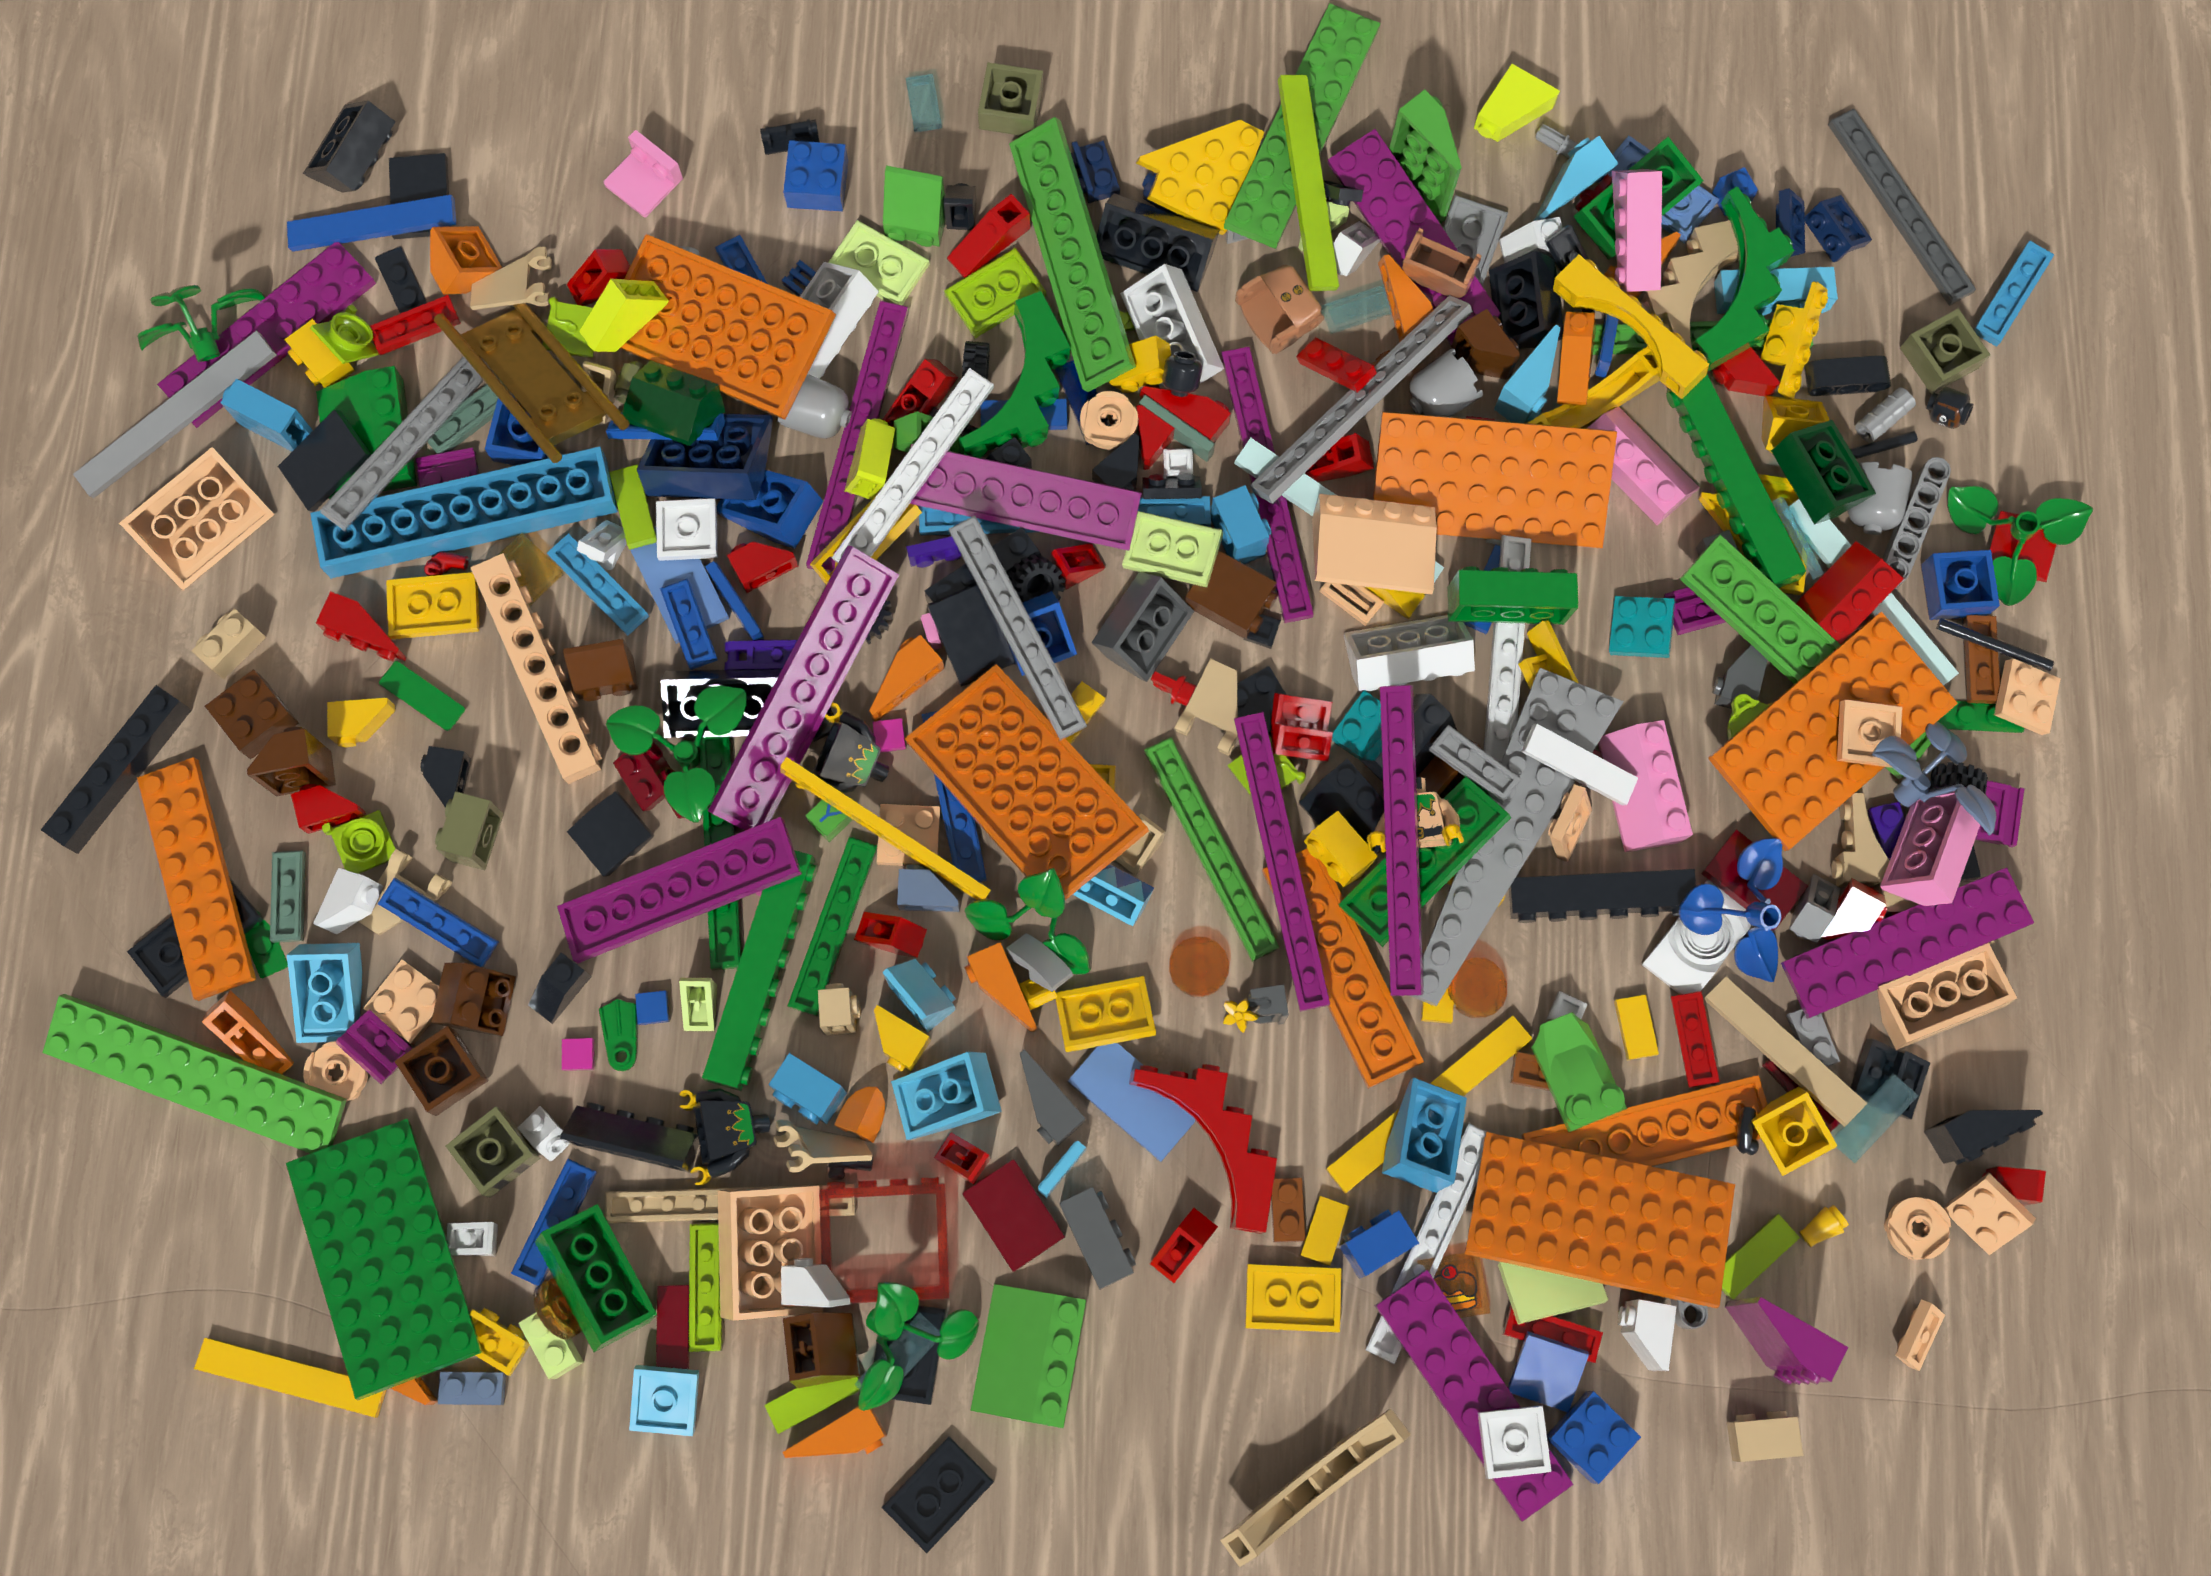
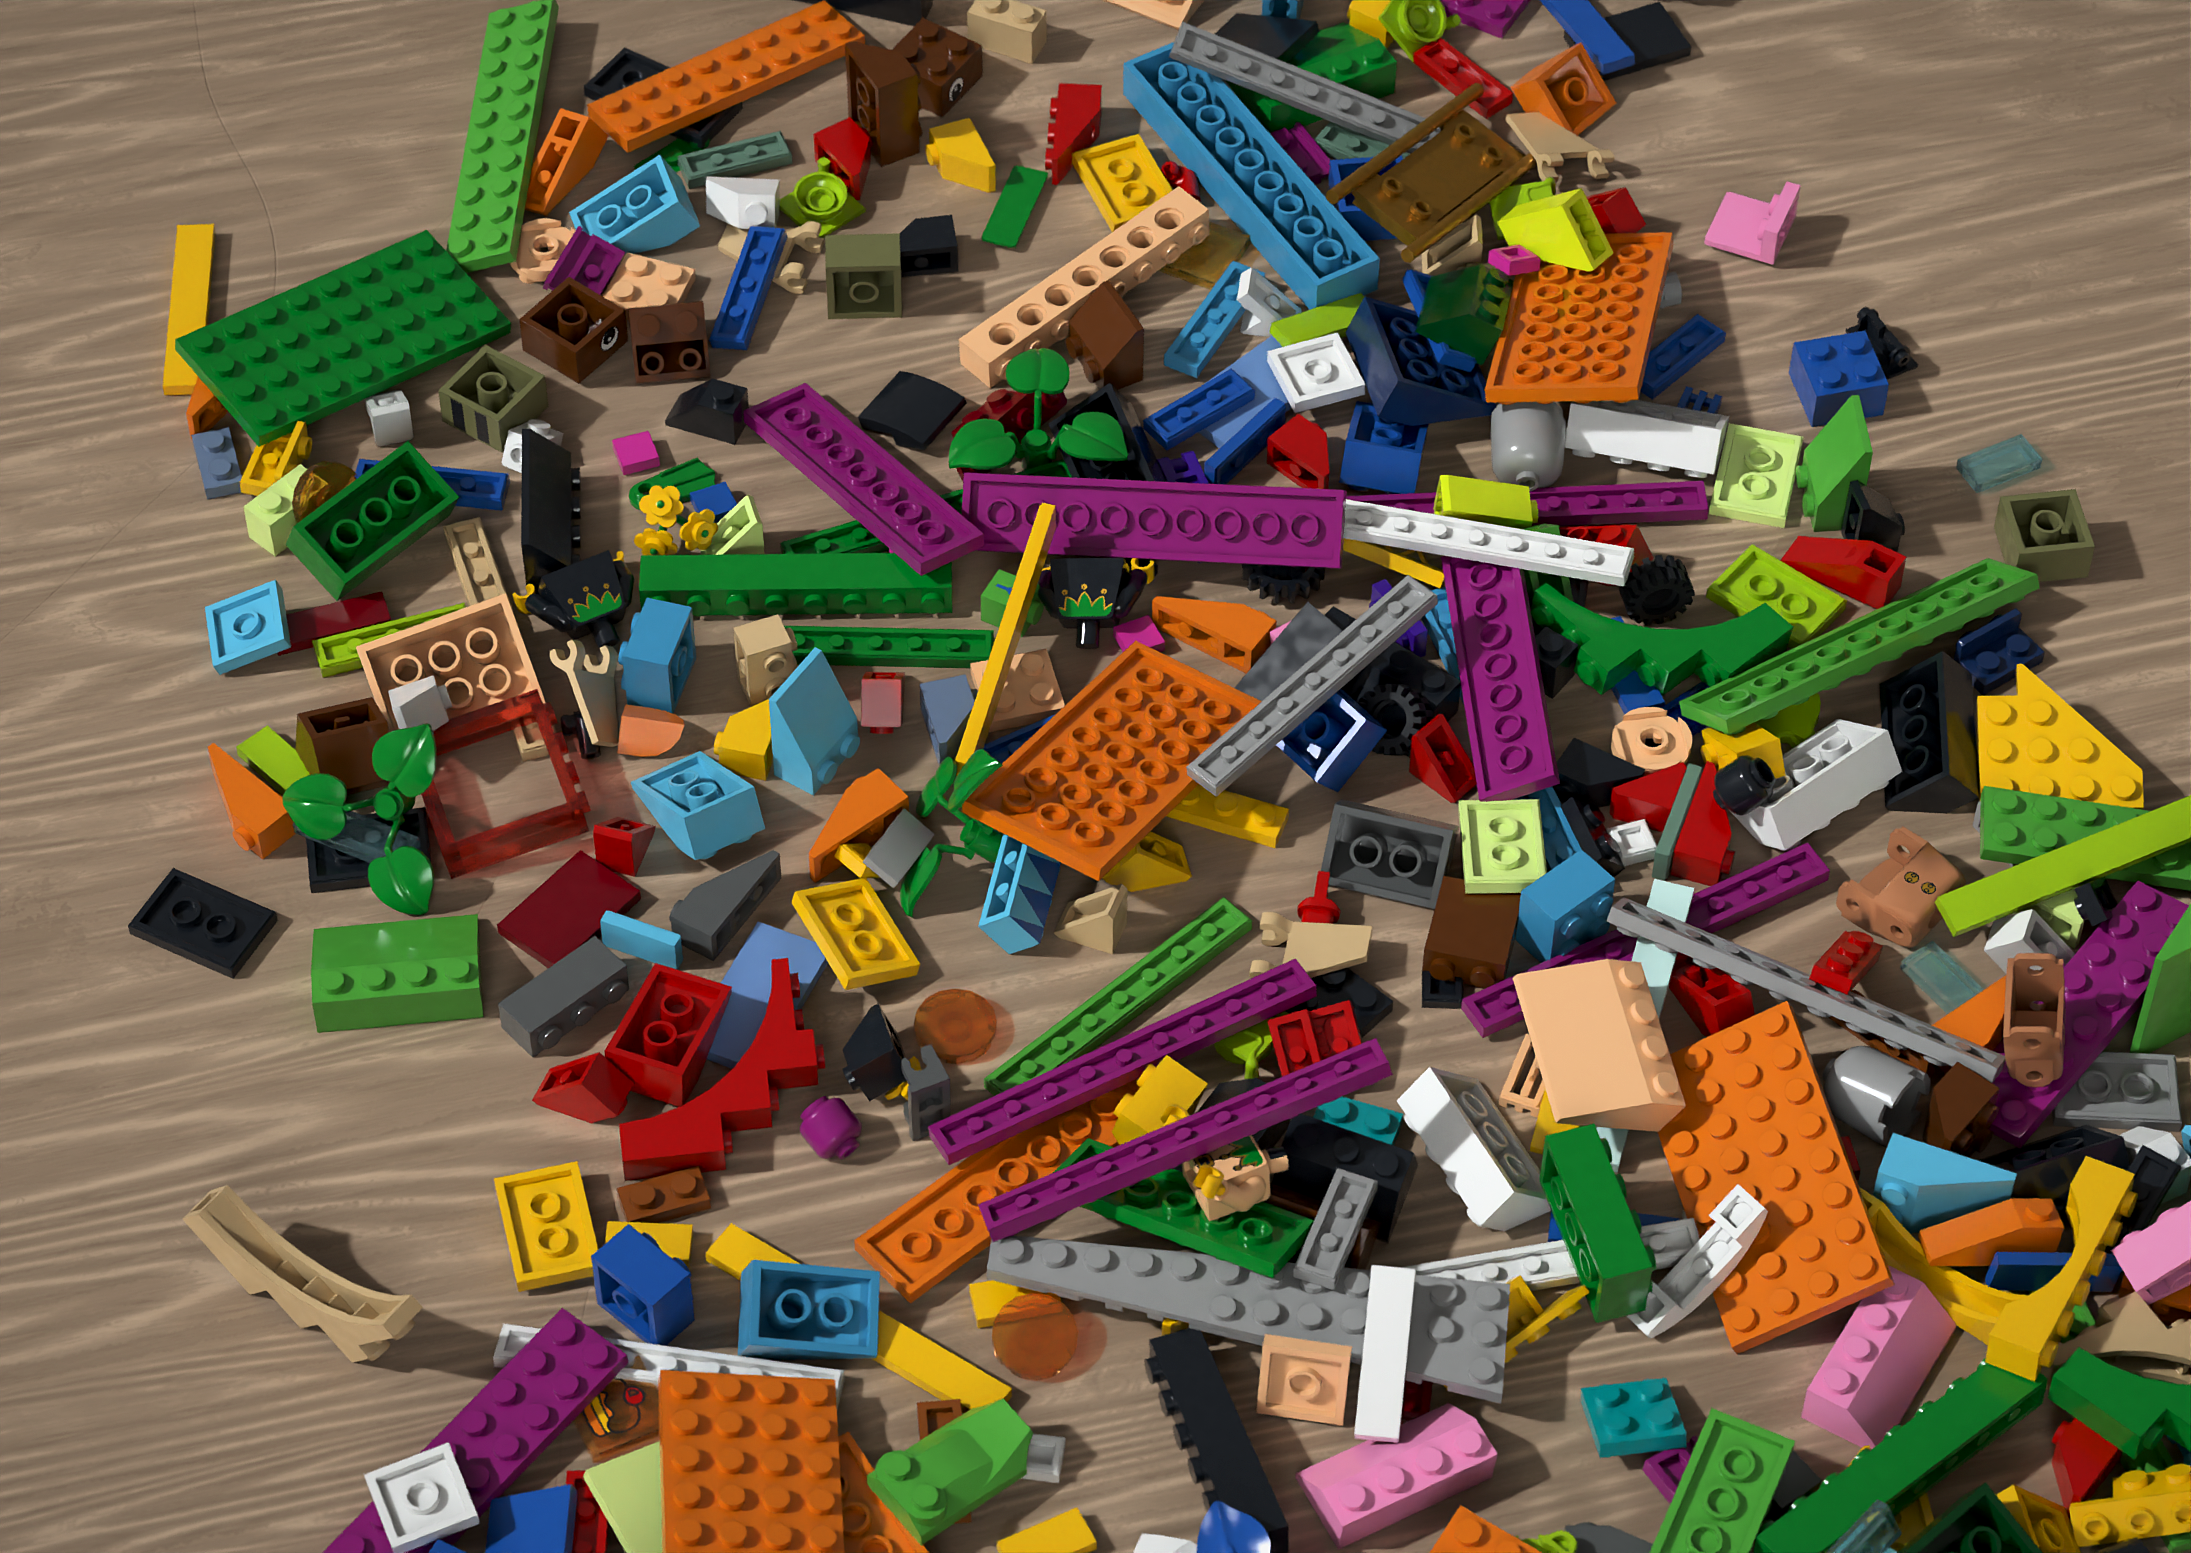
camera: 75 degrees right, 25 degrees down
(400, 280) = (1517, 56): black piece -> none
(632, 353) = (1514, 260): none -> dark pink tile
(668, 1050) = (665, 508): none -> yellow plant
(1159, 1170) = (668, 1033): none -> red slope
(1218, 1029) = (874, 1055): none -> black slope
(1268, 1078) = (830, 1128): none -> magenta head
(1544, 531) = (1705, 1265): none -> white slope

